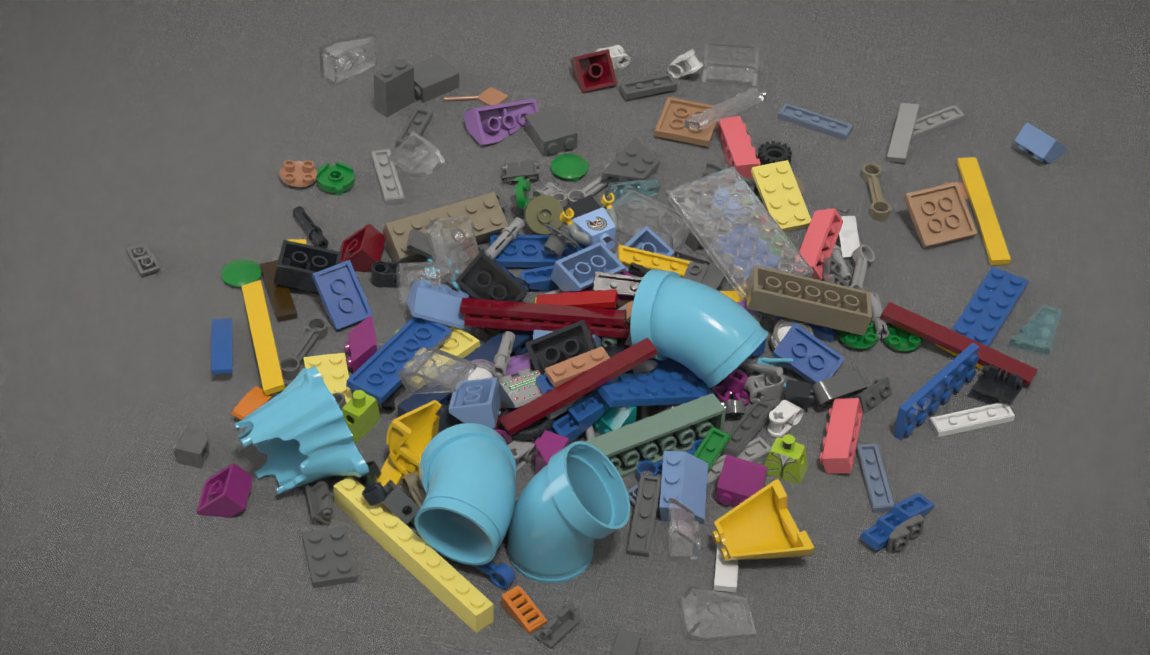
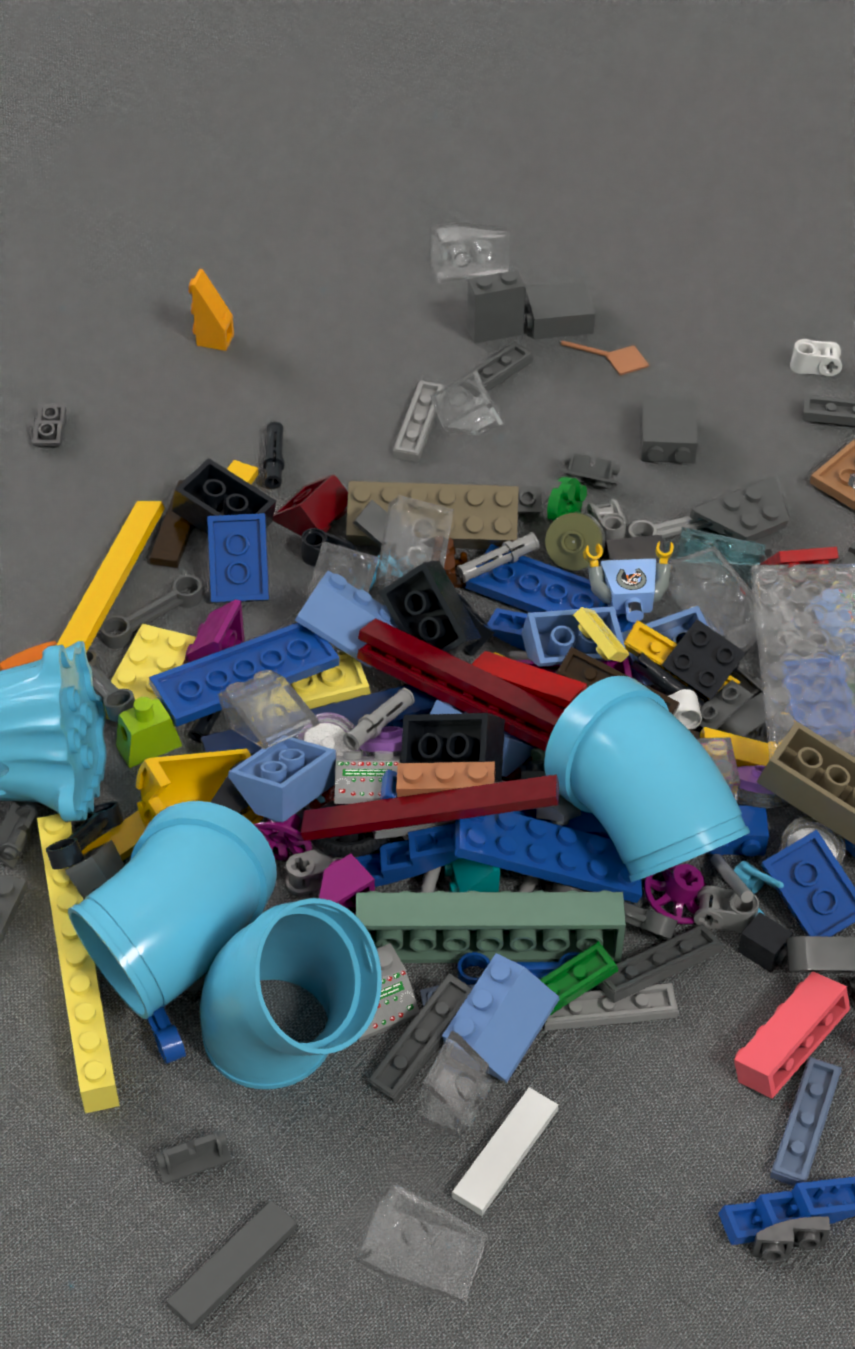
camera: 30 degrees right, 5 degrees up
(208, 151) = (211, 315): none -> light orange slope
(222, 346) = (51, 572): blue slope -> none
(241, 272) = (150, 483): green dish -> none
(298, 173) = (310, 379): nougat dish -> none
(328, 180) = (363, 404): green plate -> none
(498, 121) = (604, 394): medium lavender wedge -> none
(517, 597) = (158, 1087): orange slope -> none
(558, 243) = (562, 586): dark grey wheel -> none
(569, 167) = (664, 487): green dish -> none
(594, 70) = (780, 367): dark red slope -> none
(599, 256) = (593, 627): none -> light yellow plate
(669, 254) = (704, 659): none -> black hinge
(687, 177) = (803, 556): none -> red plate
(739, 481) = (587, 1051): magenta slope -> none
(761, 528) = (567, 1136): yellow cone -> none
(783, 418) = (725, 968): white piece -> none
(787, 460) = (682, 1039): lime torso -> none

